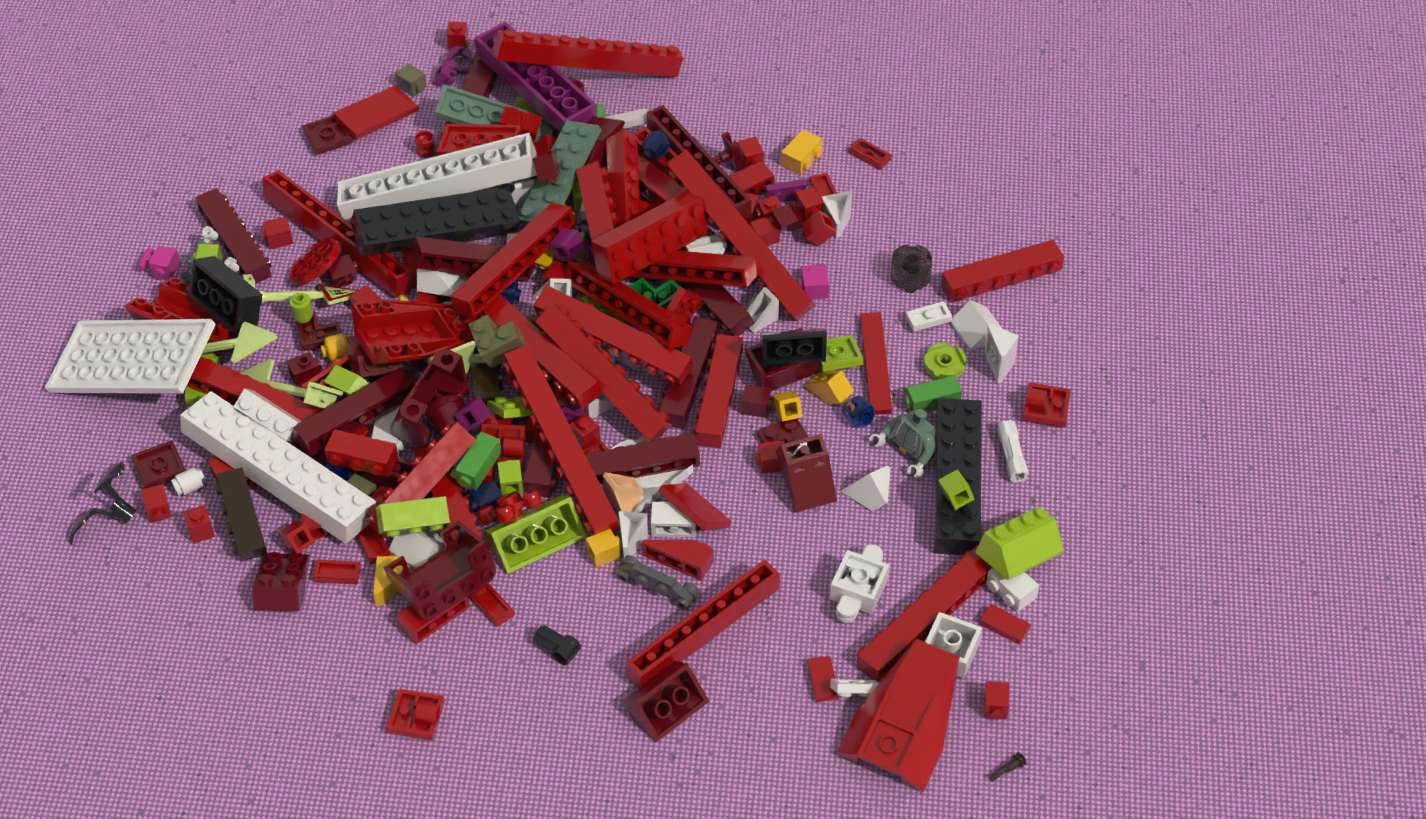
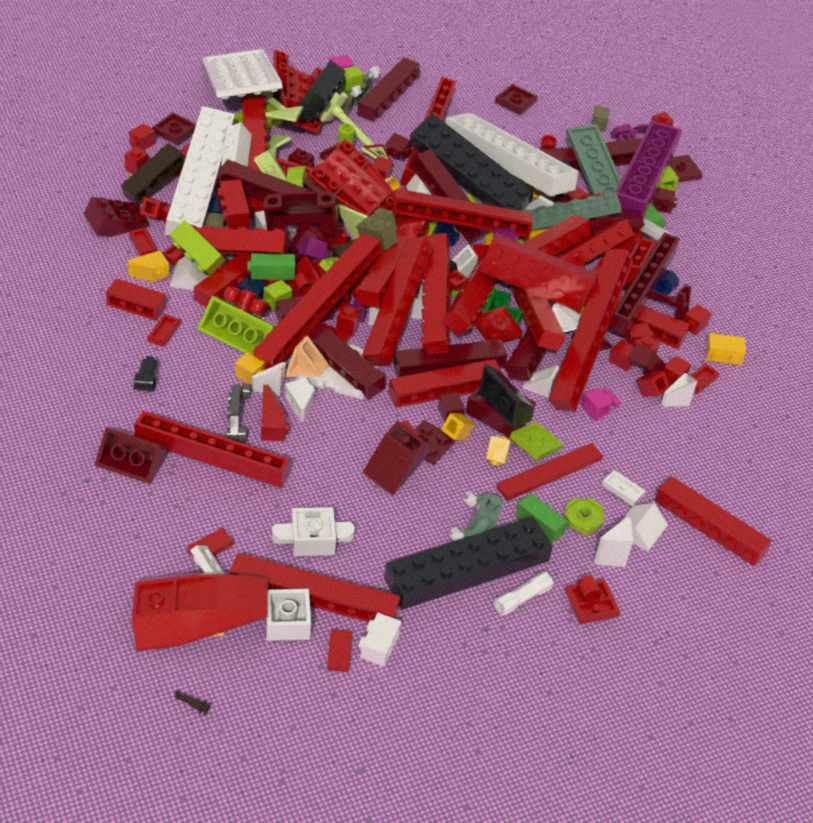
camera: 55 degrees right, 5 degrees down
(119, 508) = (125, 122): black plant -> none
(188, 481) = (164, 139): white brick -> none
(277, 233) = (409, 107): red brick -> none
(315, 261) = (392, 128): red tile -> none
(375, 112) = (553, 111): red tile -> none
(415, 714) = (43, 323): red plate -> none
(447, 576) = (155, 289): dark red windscreen -> none
(465, 136) = (565, 154): red plate -> none
(529, 122) = (599, 177): red brick -> none
(547, 166) = (561, 196): dark red slope -> none
(587, 53) = (694, 183): red brick -> none
(656, 145) = (637, 247): clear blue head -> none
(694, 506) = (320, 405): red tile -> none
(786, 190) = (670, 349): magenta plate -> none
(859, 411) = (488, 475): clear blue head -> none
(868, 156) = (764, 403): red tile -> none
(871, 490) = (416, 508): white slope -> none
(911, 267) = (661, 456): clear smoke brick -> none
(956, 489) = (433, 551): lime brick -> none
(996, 700) = (252, 668): red brick -> none
(1021, 543) = (419, 625): lime slope -> none

